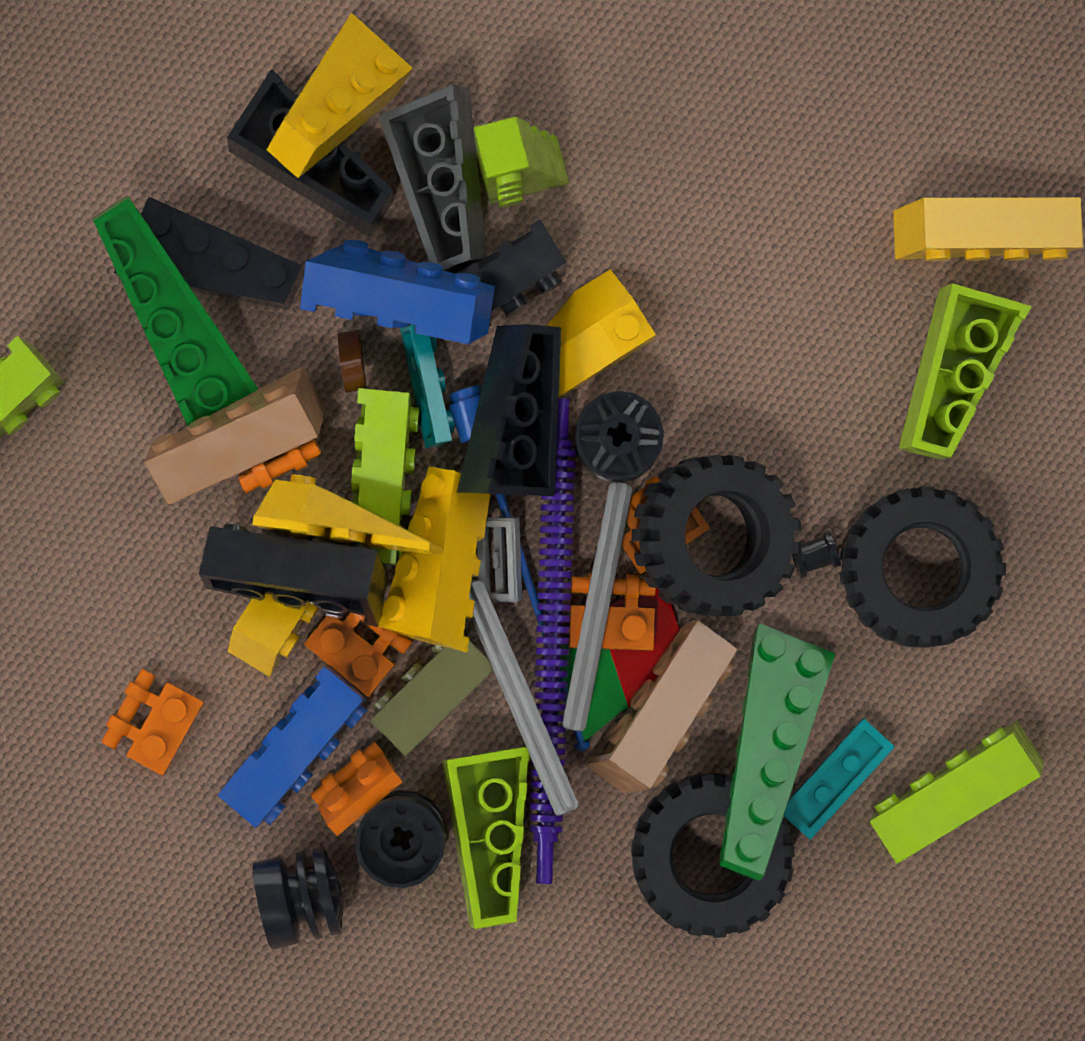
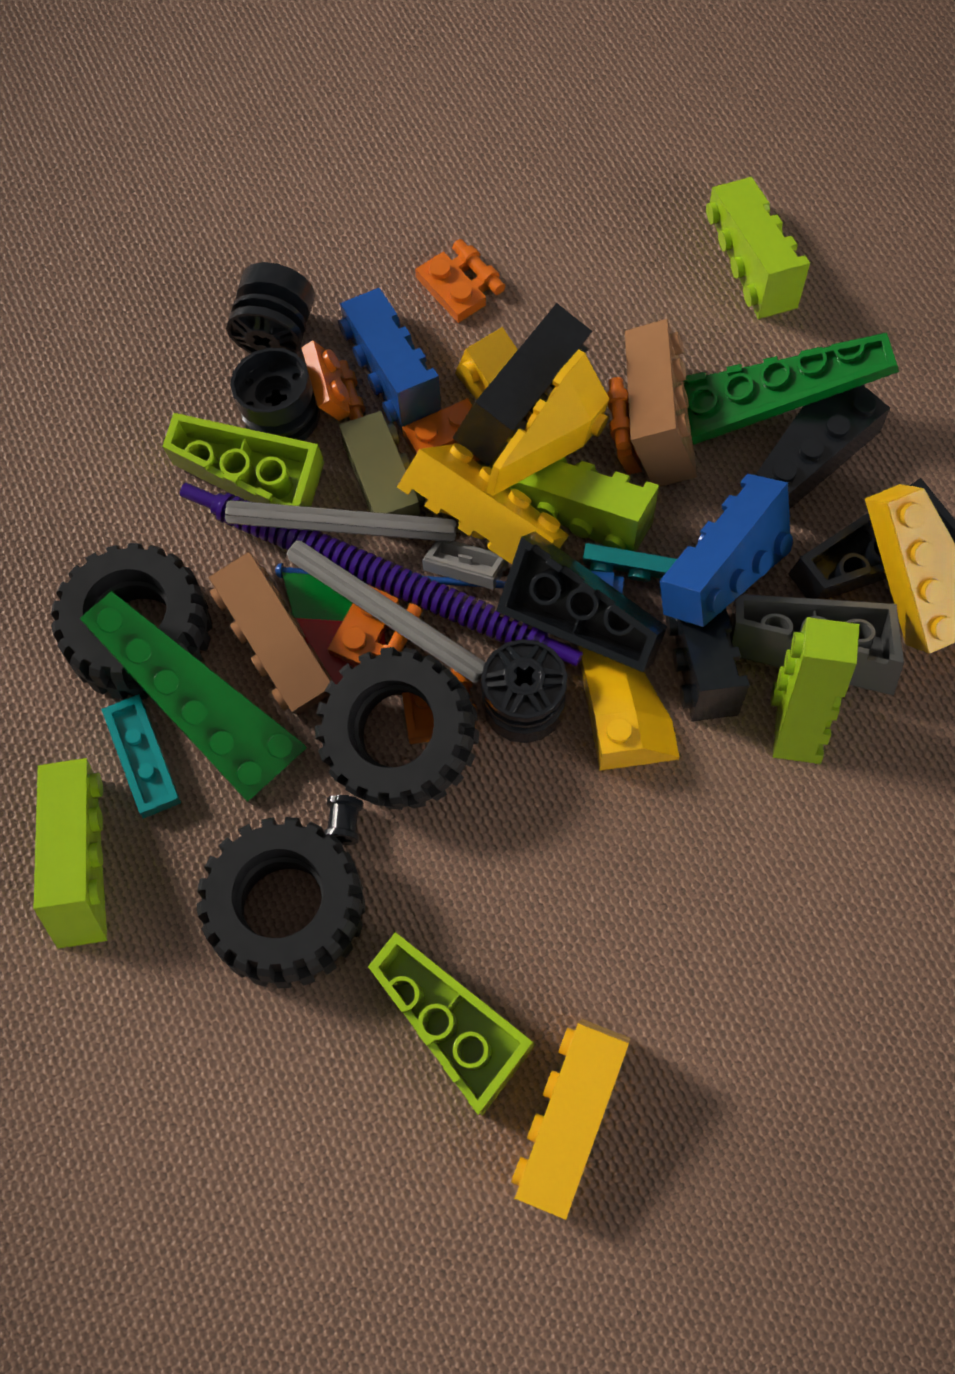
camera: 120 degrees right, 20 degrees down
(351, 360) = (683, 509): reddish brown beam -> none

